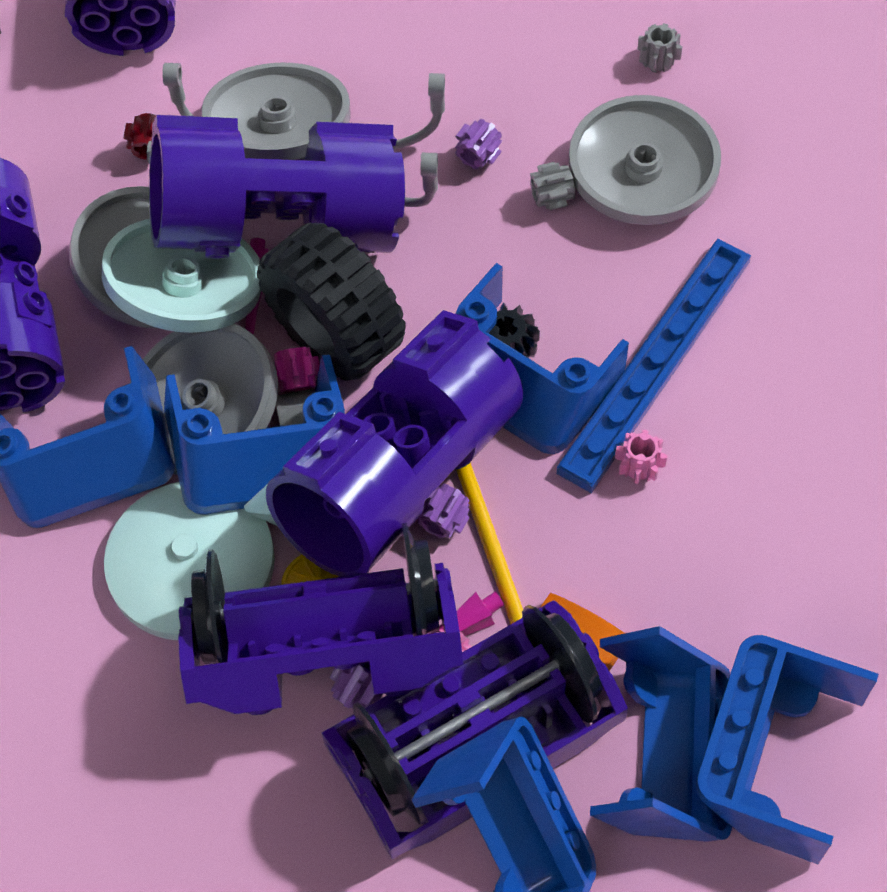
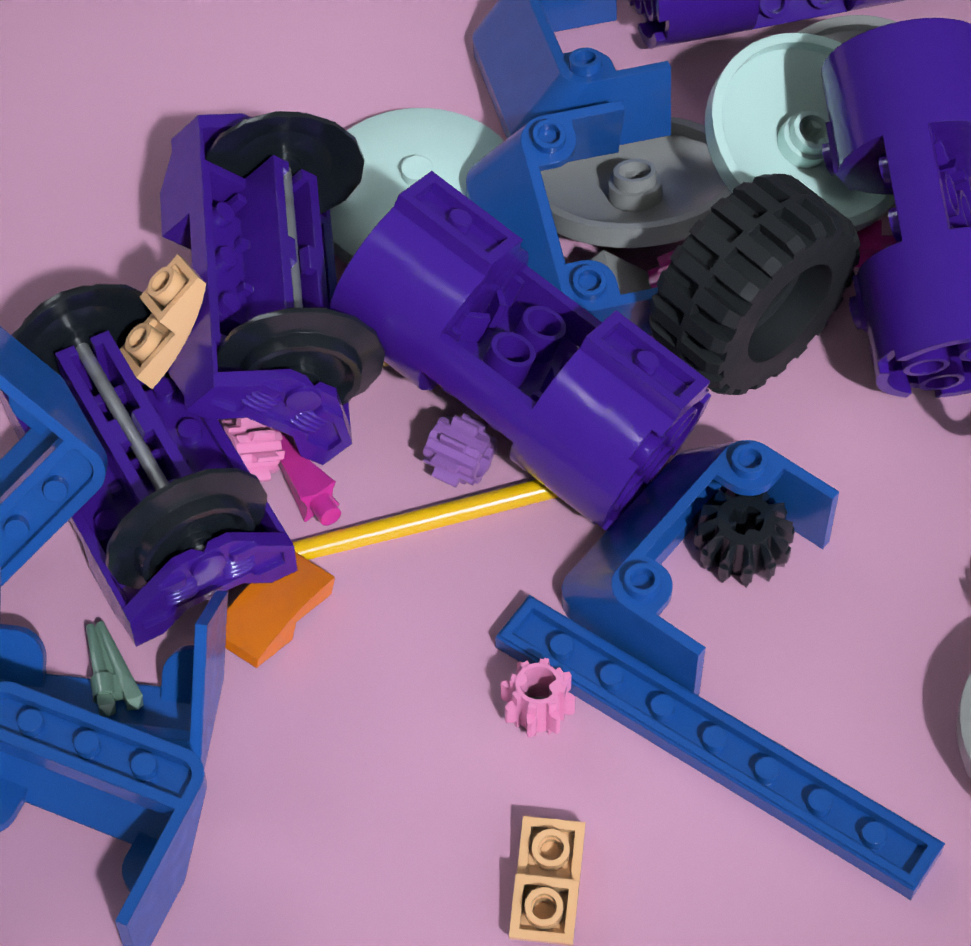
camera: 90 degrees right, 5 degrees down
(381, 685) = (175, 301): none -> light nougat slope
(641, 742) = (111, 676): none -> sand green piece
(776, 453) = (547, 881): none -> light nougat slope

